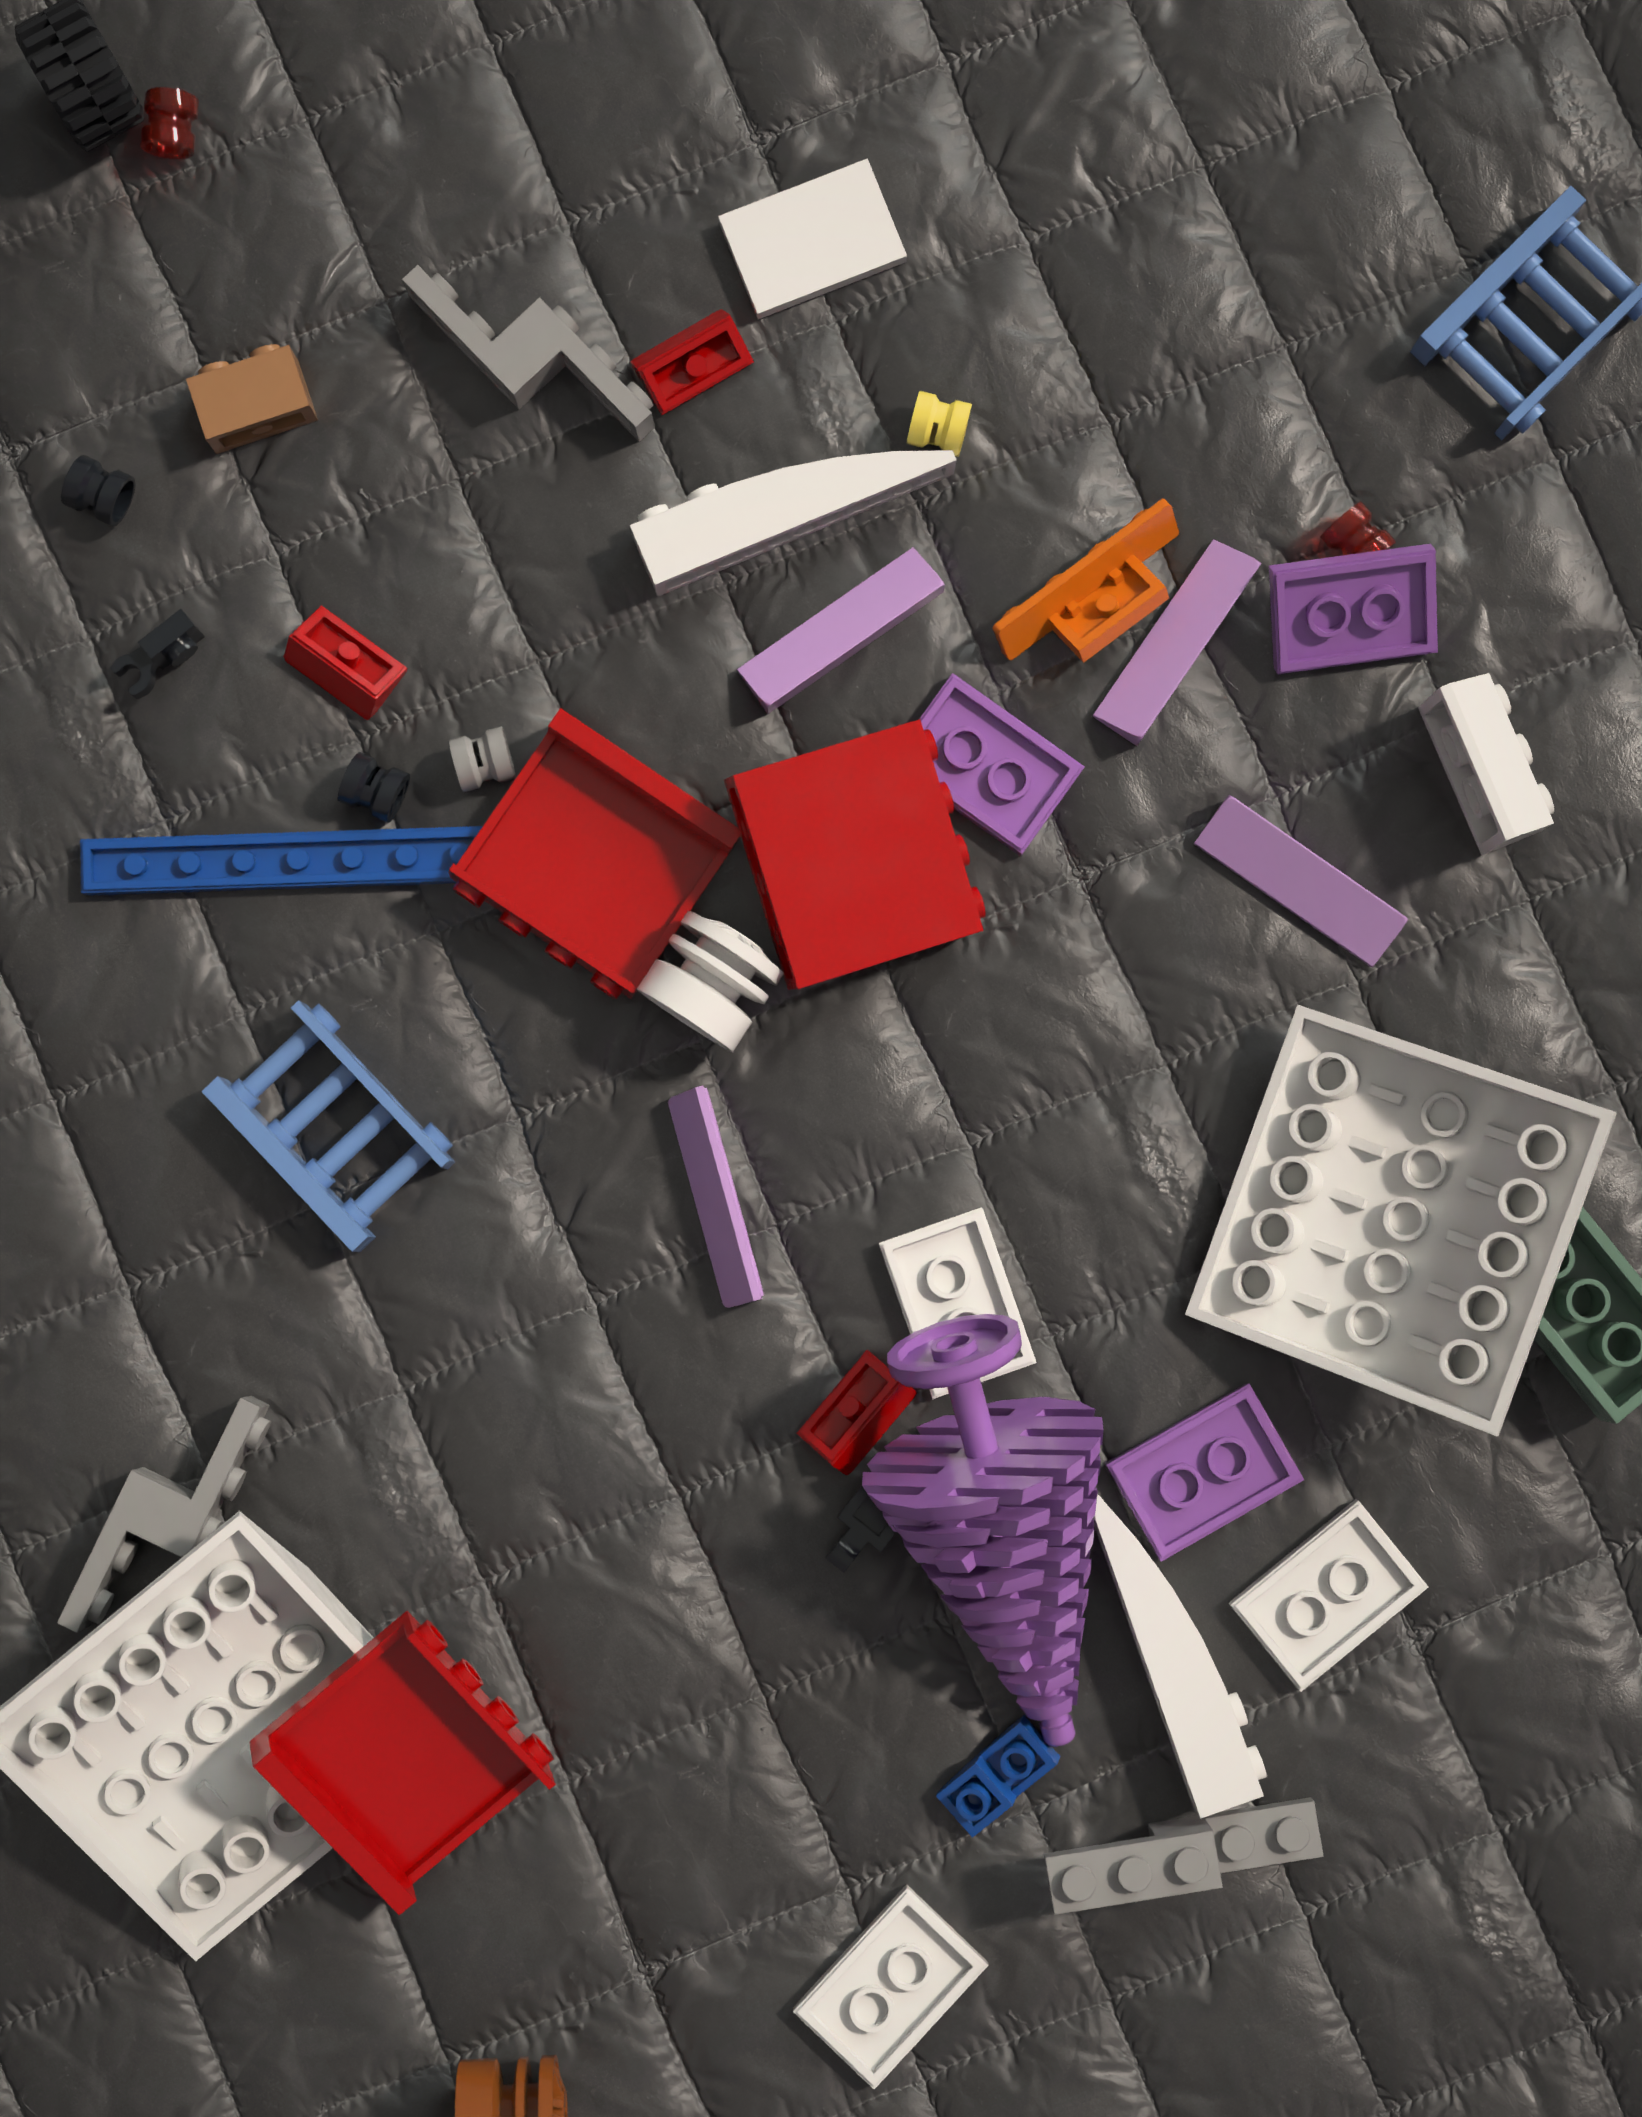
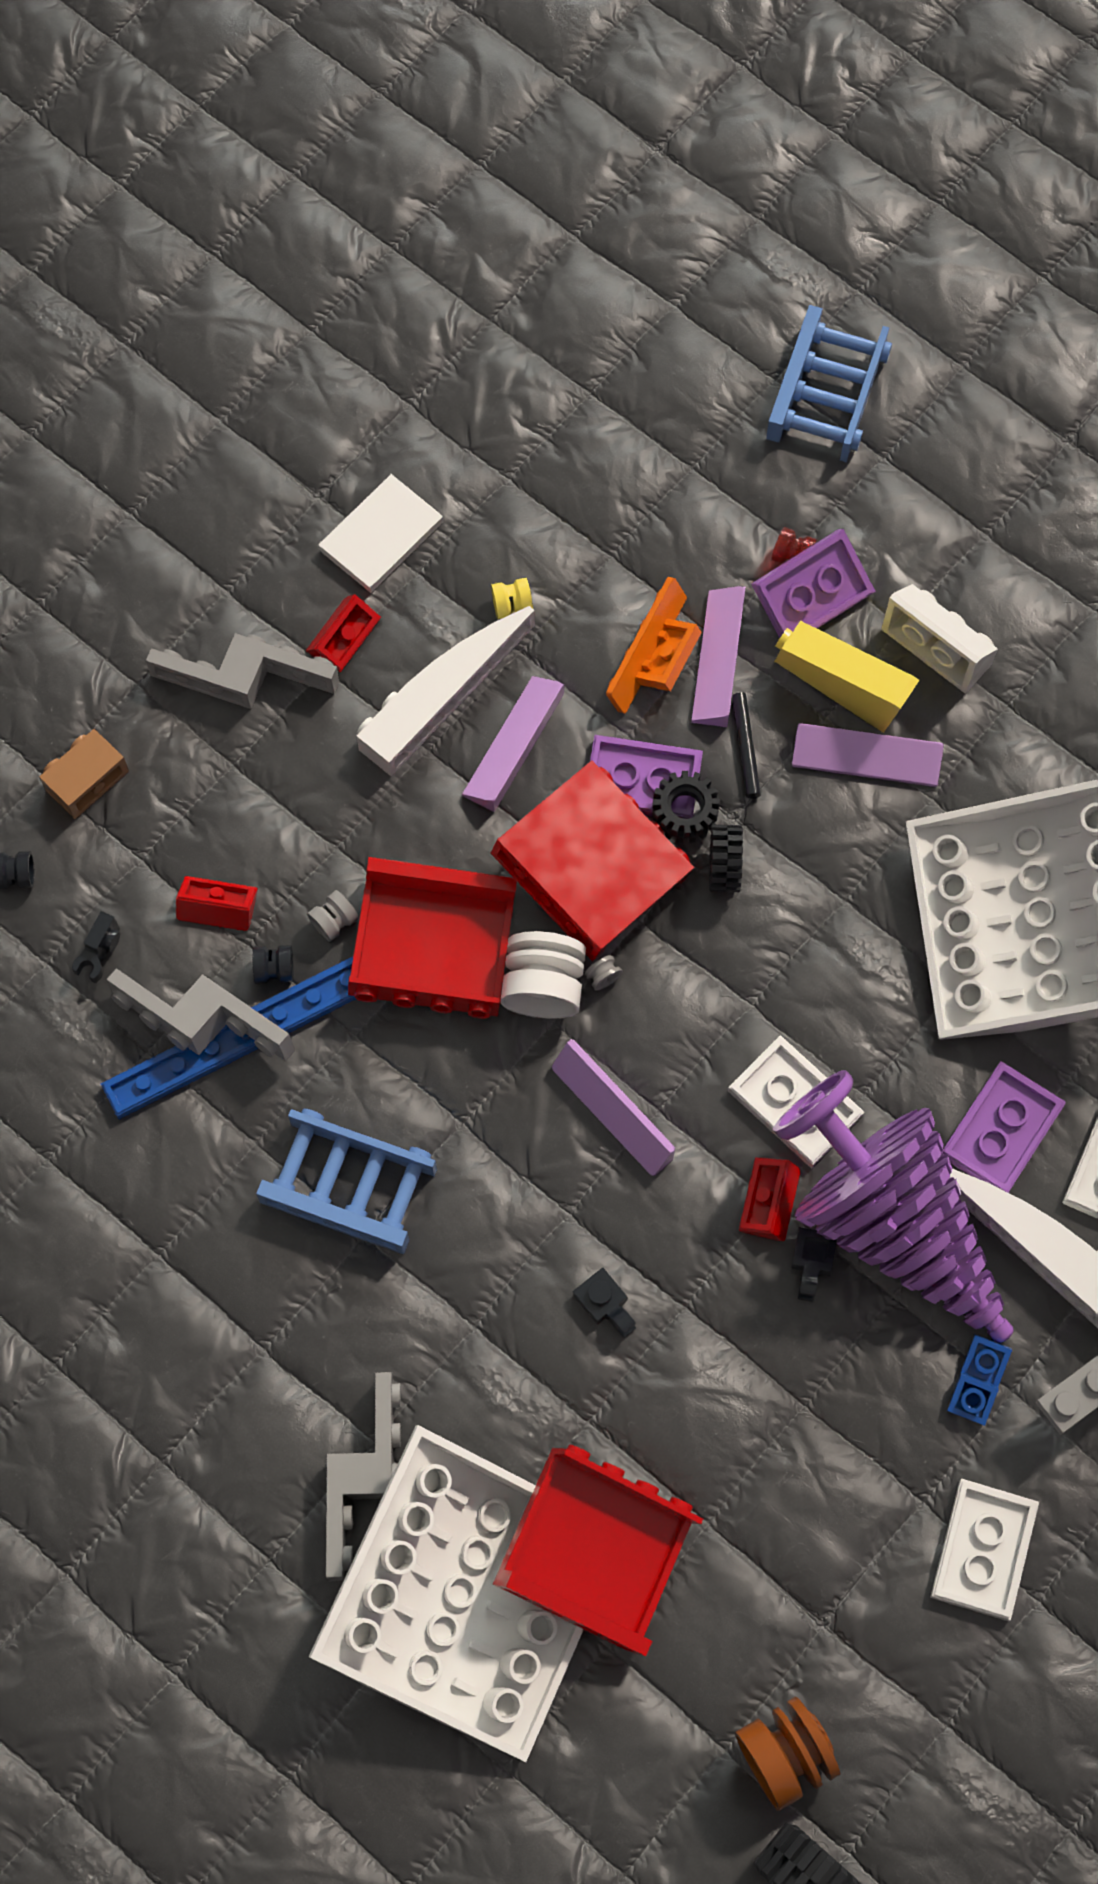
camera: 25 degrees left, 15 degrees down
(241, 815) = (200, 1015): none -> light grey bracket
(578, 1436) = (603, 1300): none -> black plate
(795, 1010) = (603, 972): none -> light grey bush
(1024, 806) = (687, 786): none -> black tyre
(1032, 937) = (725, 858): none -> black tyre
(1147, 785) = (746, 745): none -> black bar
(1328, 758) = (845, 674): none -> light yellow slope

